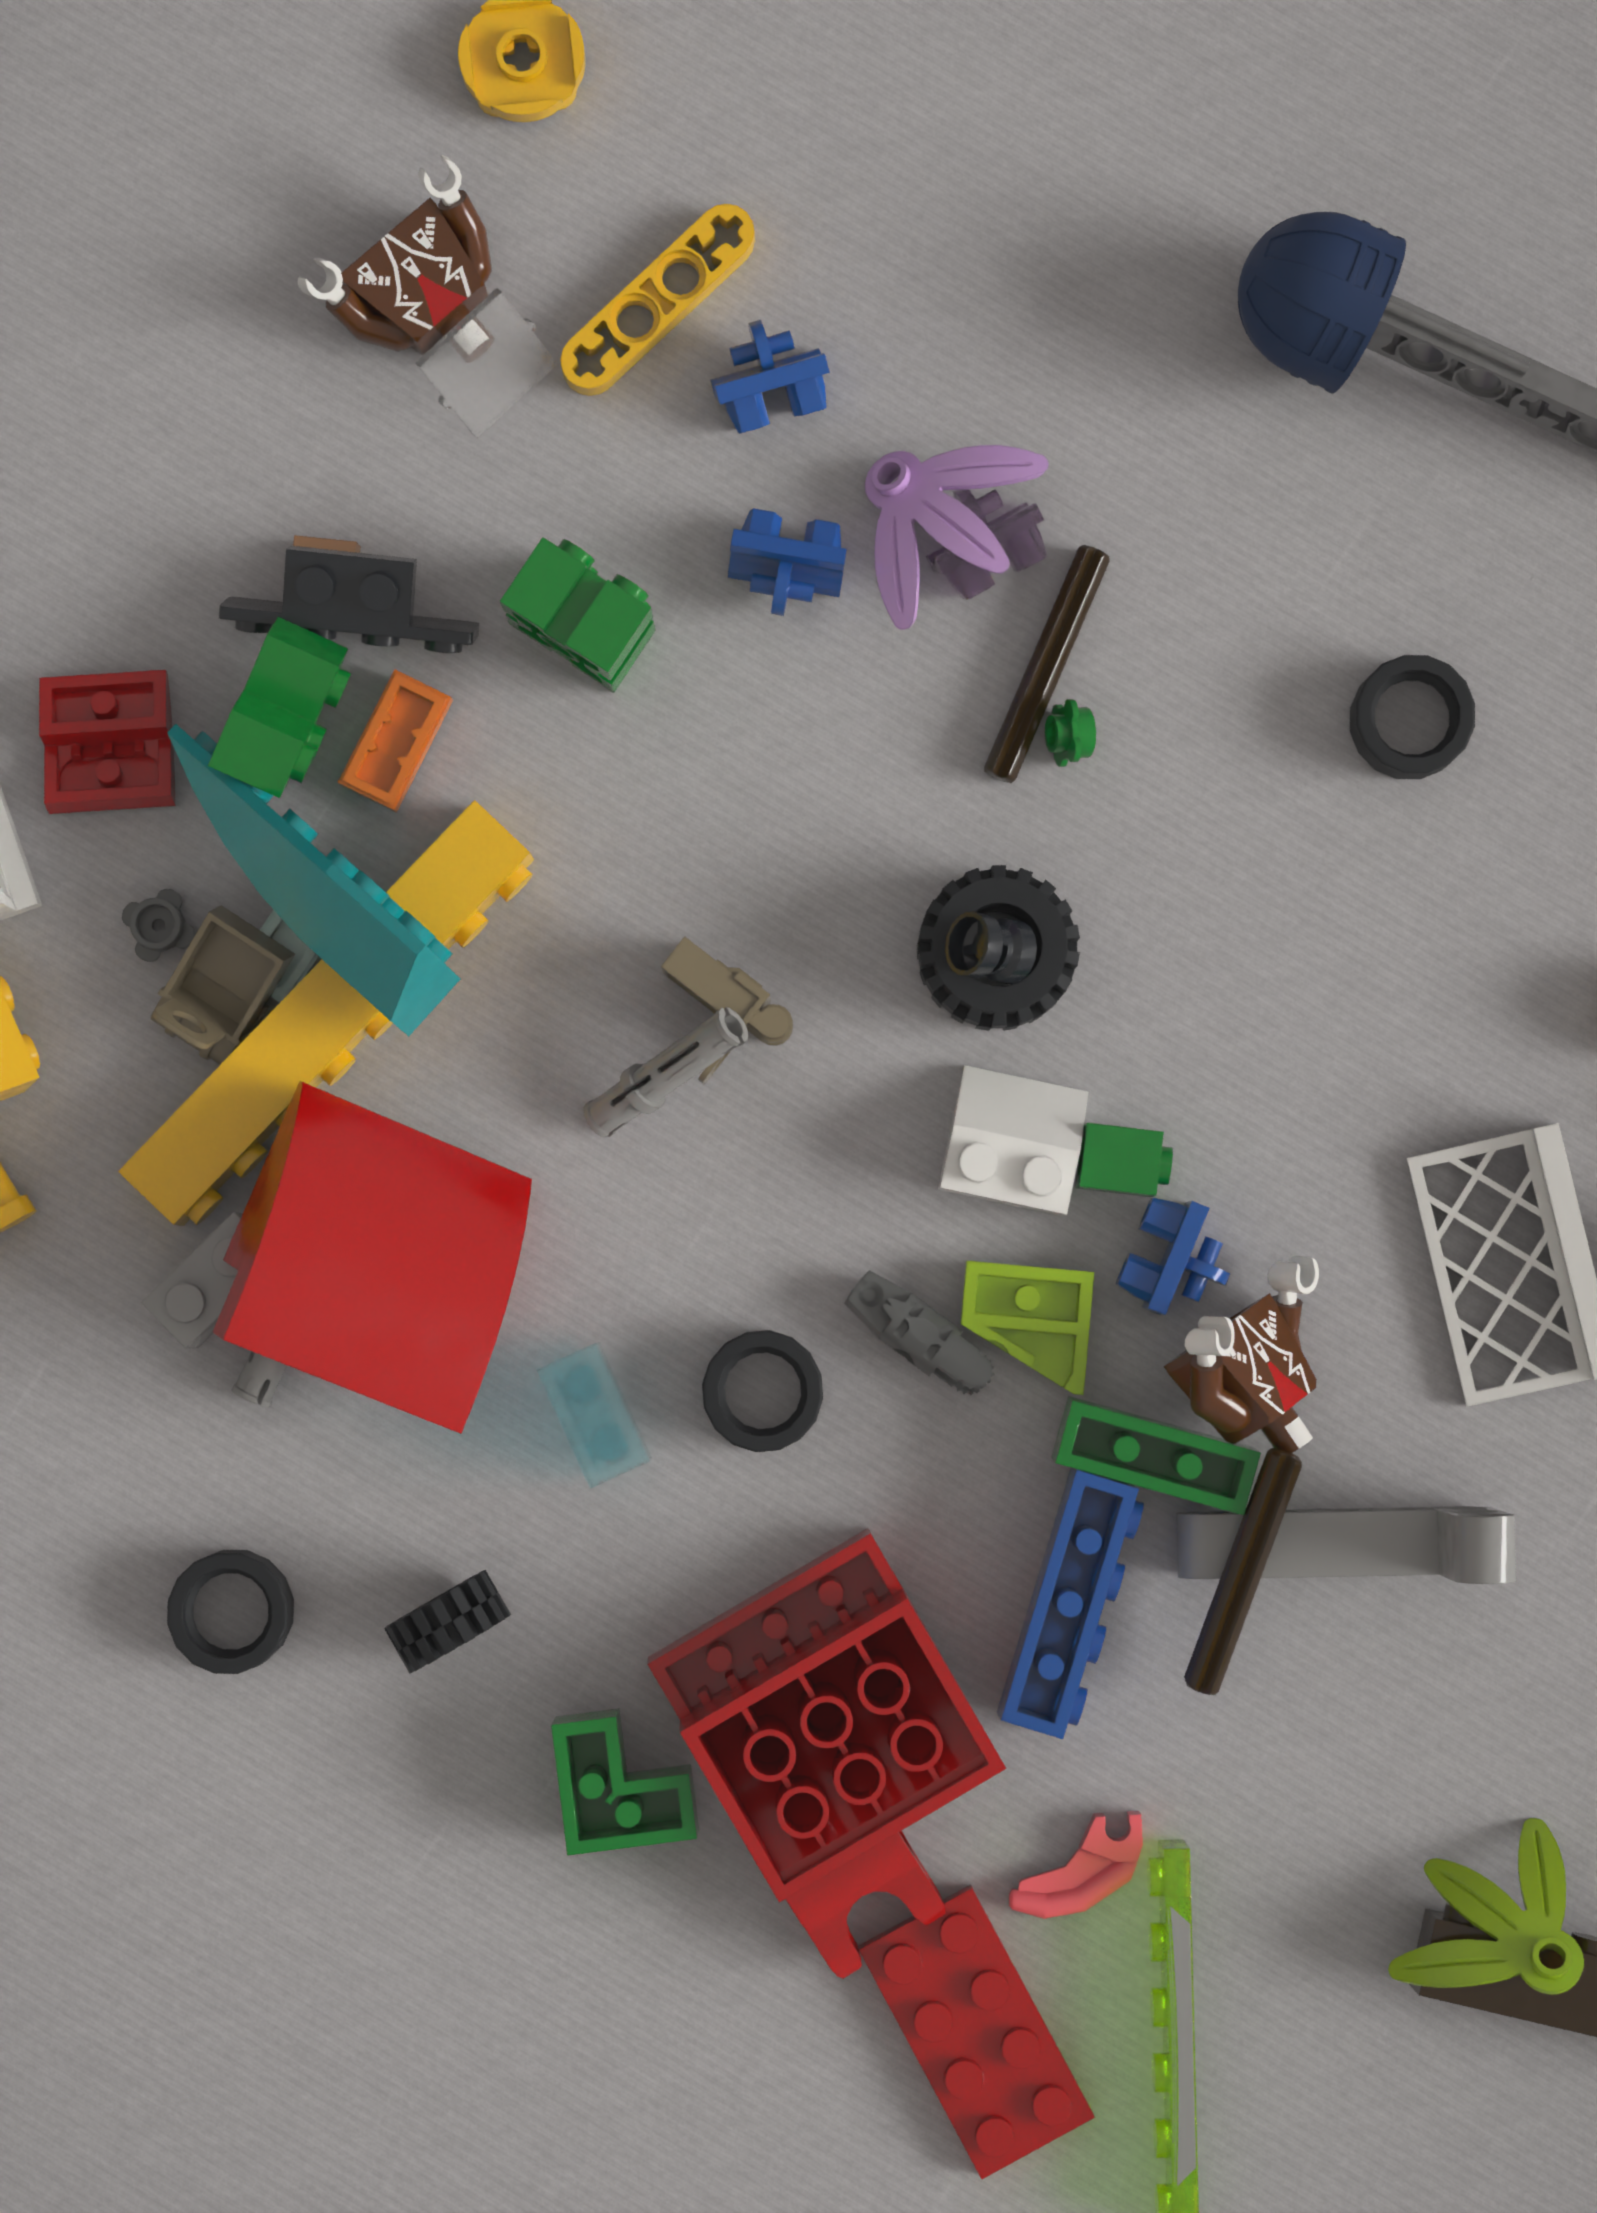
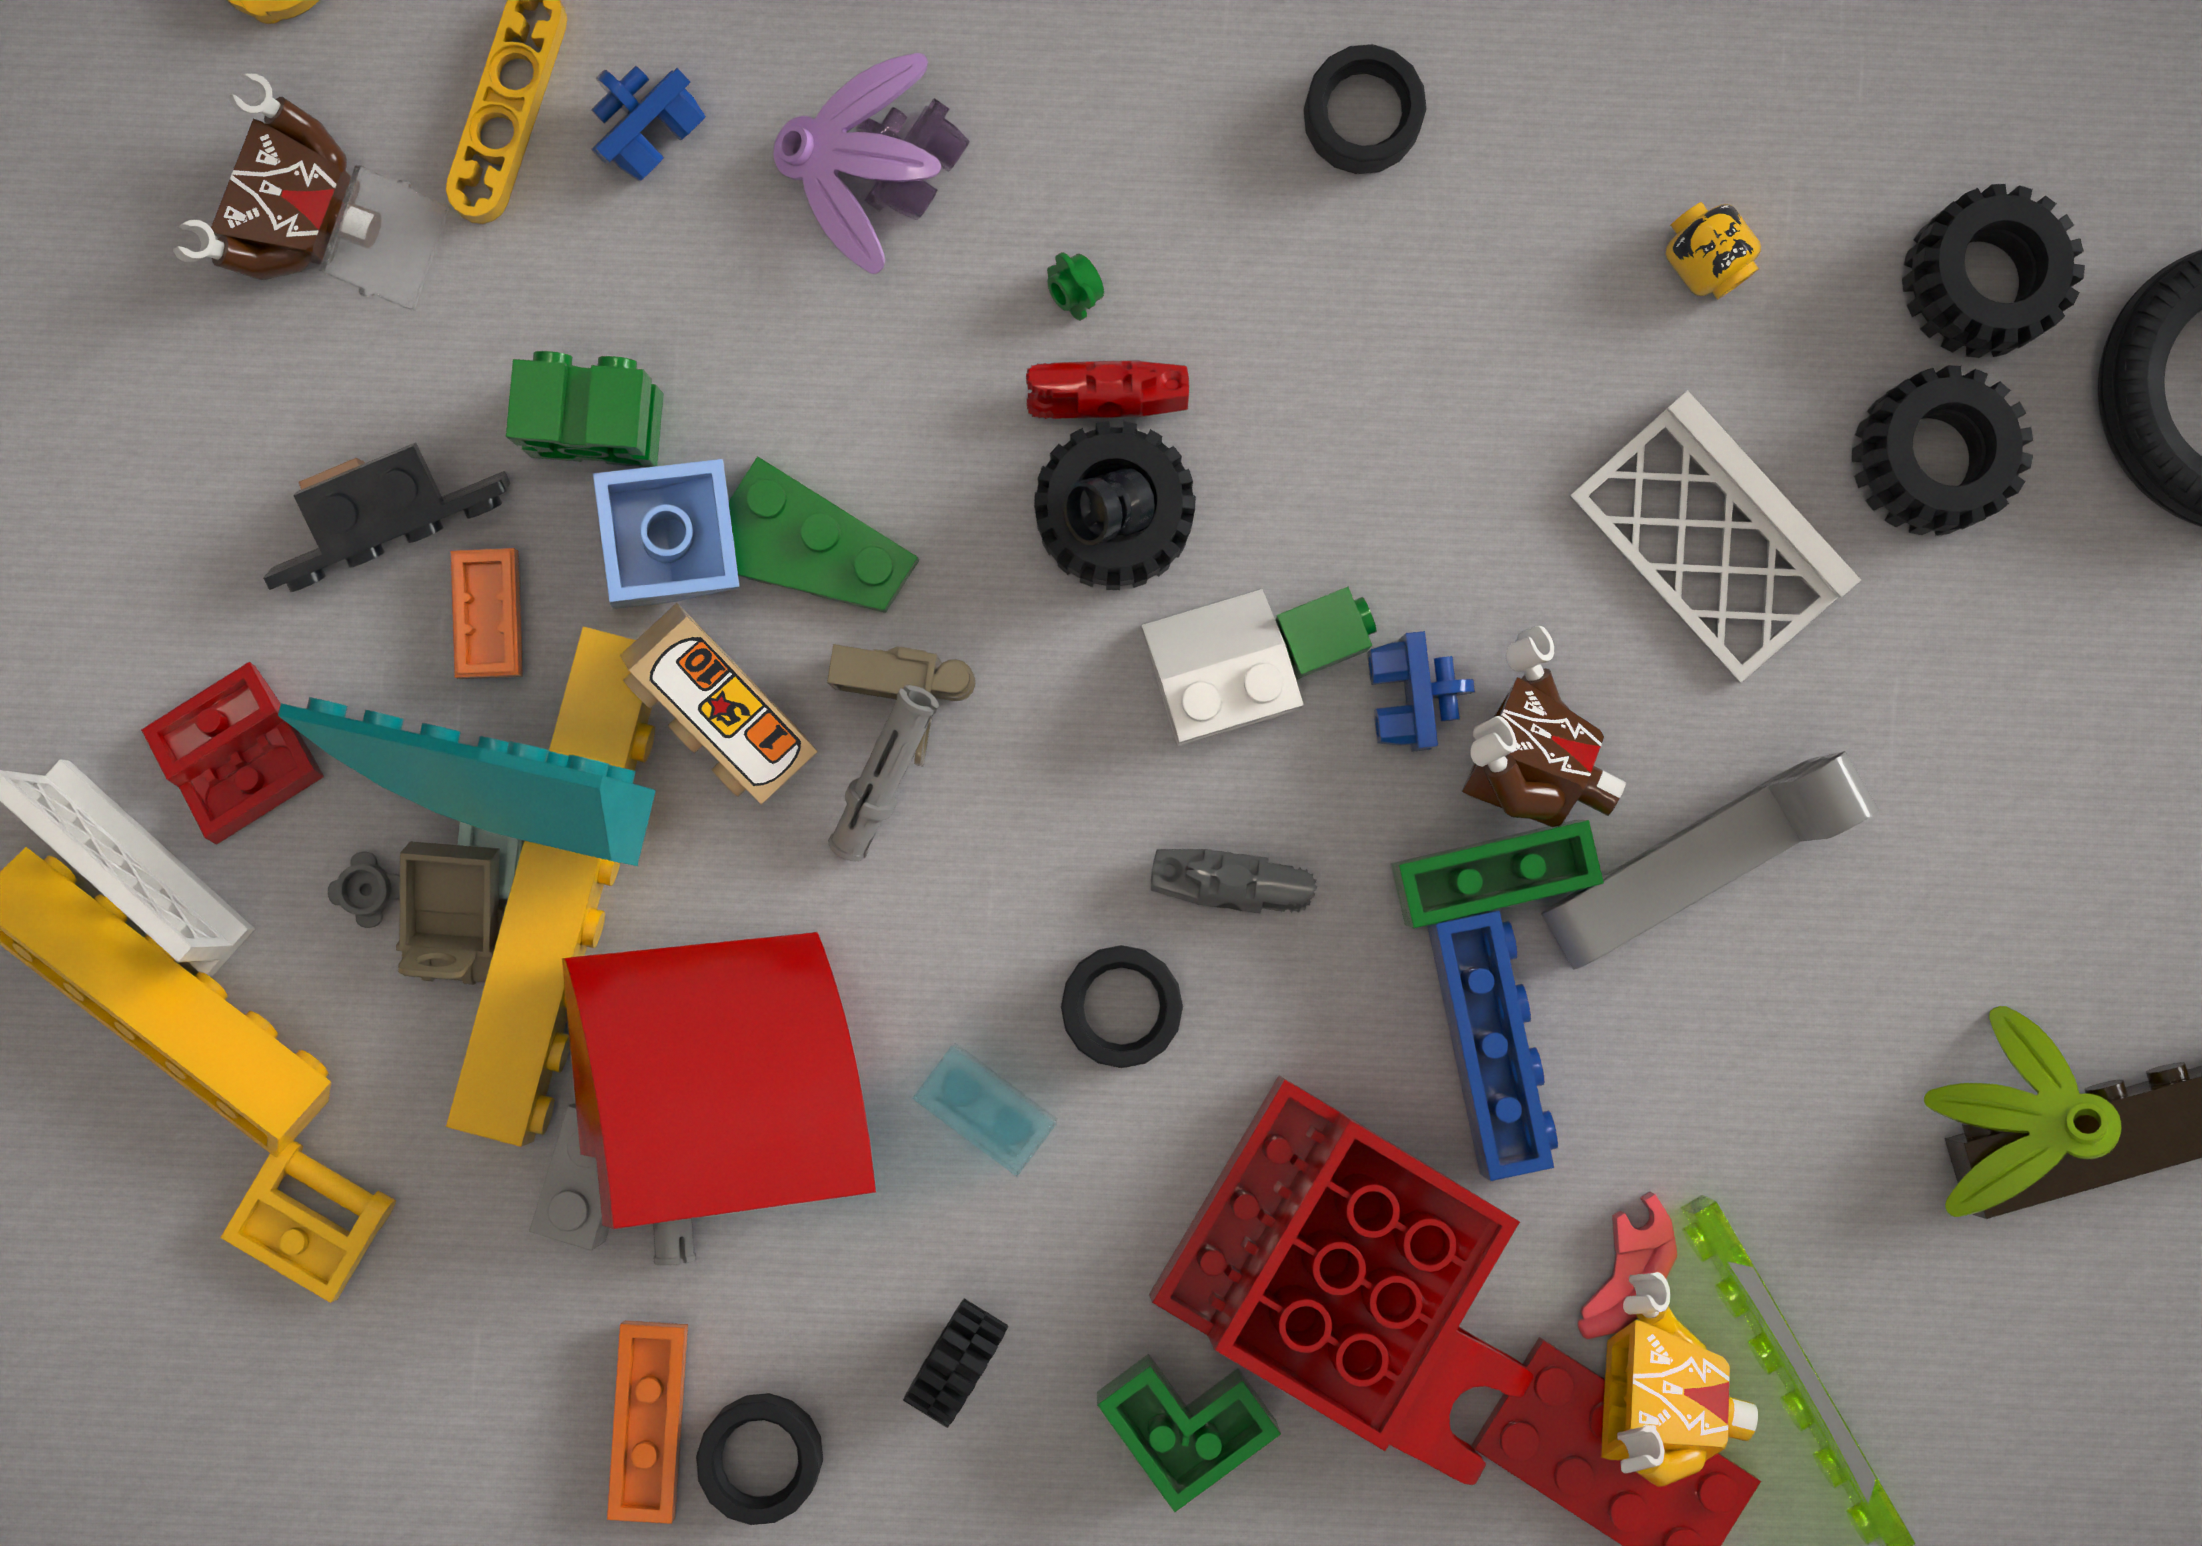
camera: 30 degrees left, 0 degrees up
(150, 1525) = (647, 1422): none -> orange plate
(274, 720) = (366, 654): green brick -> none
(552, 933) = (715, 706): none -> brick
(591, 758) = (665, 533): none -> light blue slope
(706, 828) = (811, 545): none -> green wing
(786, 565) = (744, 272): blue hips -> none
(1032, 1316) = (1321, 811): lime wing -> none
(1046, 663) = (1021, 236): dark brown axle -> none
(1047, 841) = (1106, 389): none -> red hinge
(1054, 1991) = (1666, 1393): none -> yellow torso
(1243, 1571) = (1629, 932): dark brown axle -> none

